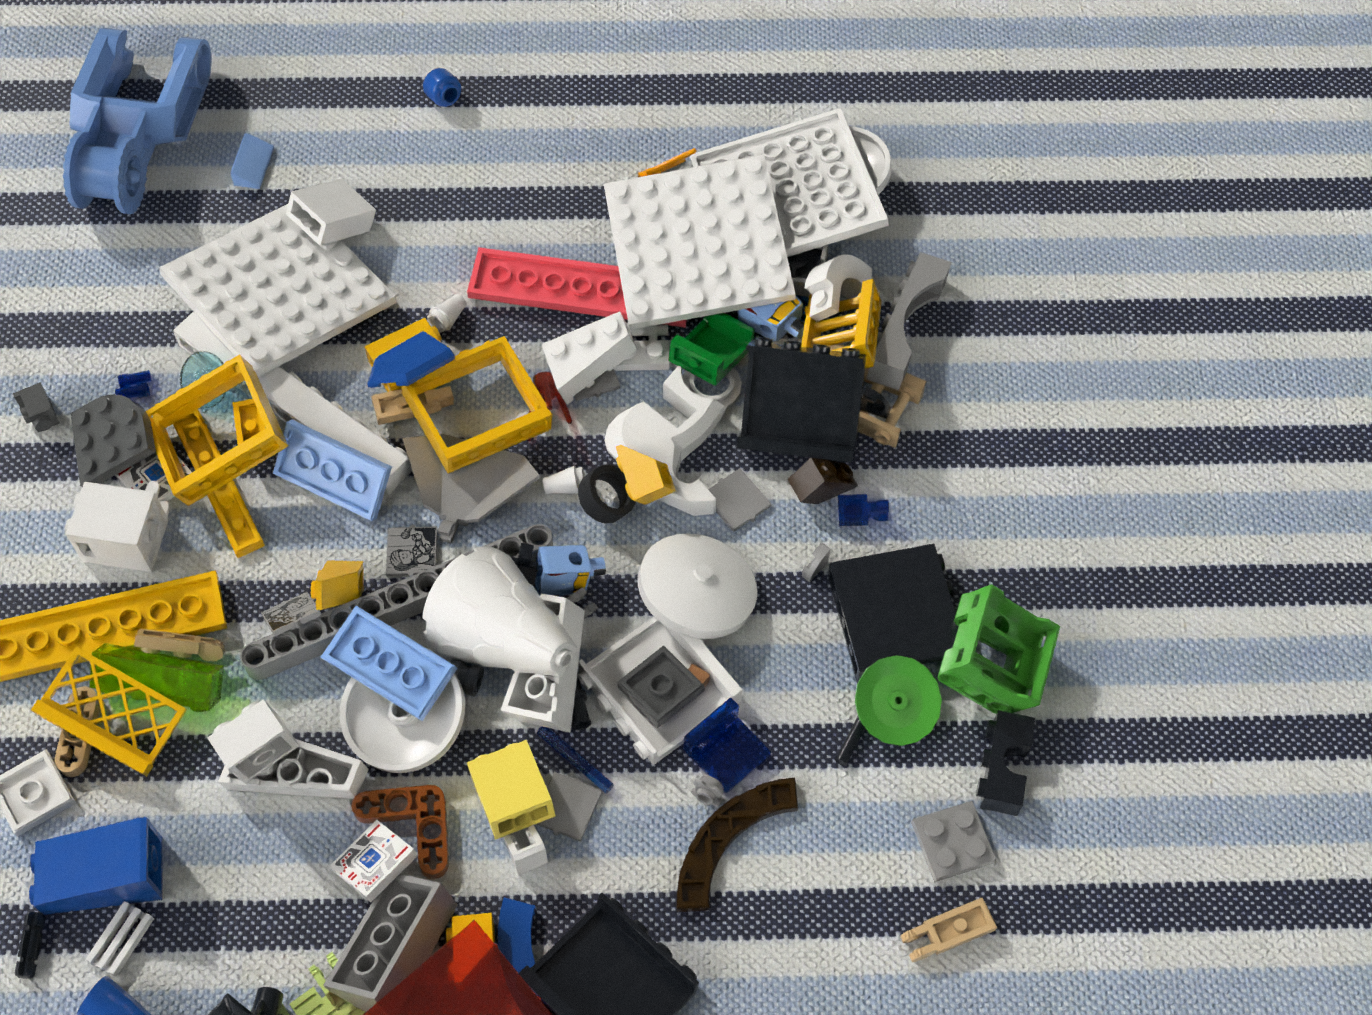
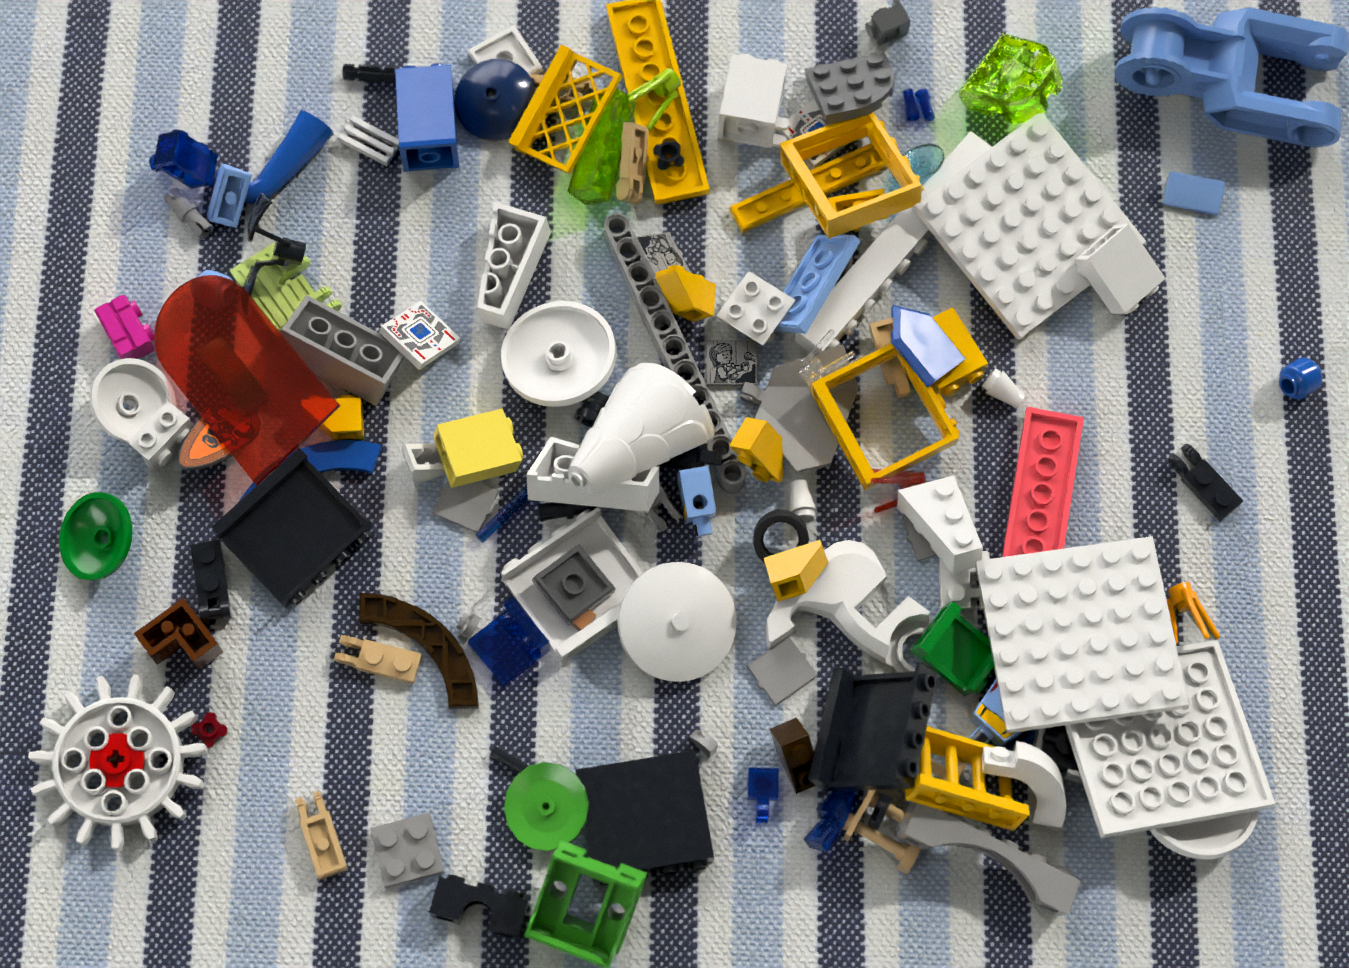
camera: 90 degrees right, 10 degrees up
(91, 613) = (663, 85): none -> lime plant
(106, 797) = (497, 116): none -> dark blue dish
(127, 275) = (1009, 73): none -> clear neon green connector
(170, 600) = (671, 148): none -> black plate
(252, 741) = (515, 220): white brick -> none
(357, 520) = (756, 308): none -> white hinge
(389, 663) = (599, 337): light blue tile -> none
(416, 810) = (468, 373): dark orange beam -> none
(432, 461) = (815, 370): none -> clear plant
(515, 508) = (759, 448): none -> yellow slope
(540, 162) = (1206, 483): none -> black hinge
(750, 880) = (381, 659): none -> tan hinge
(882, 449) = (834, 814): none -> clear blue slope

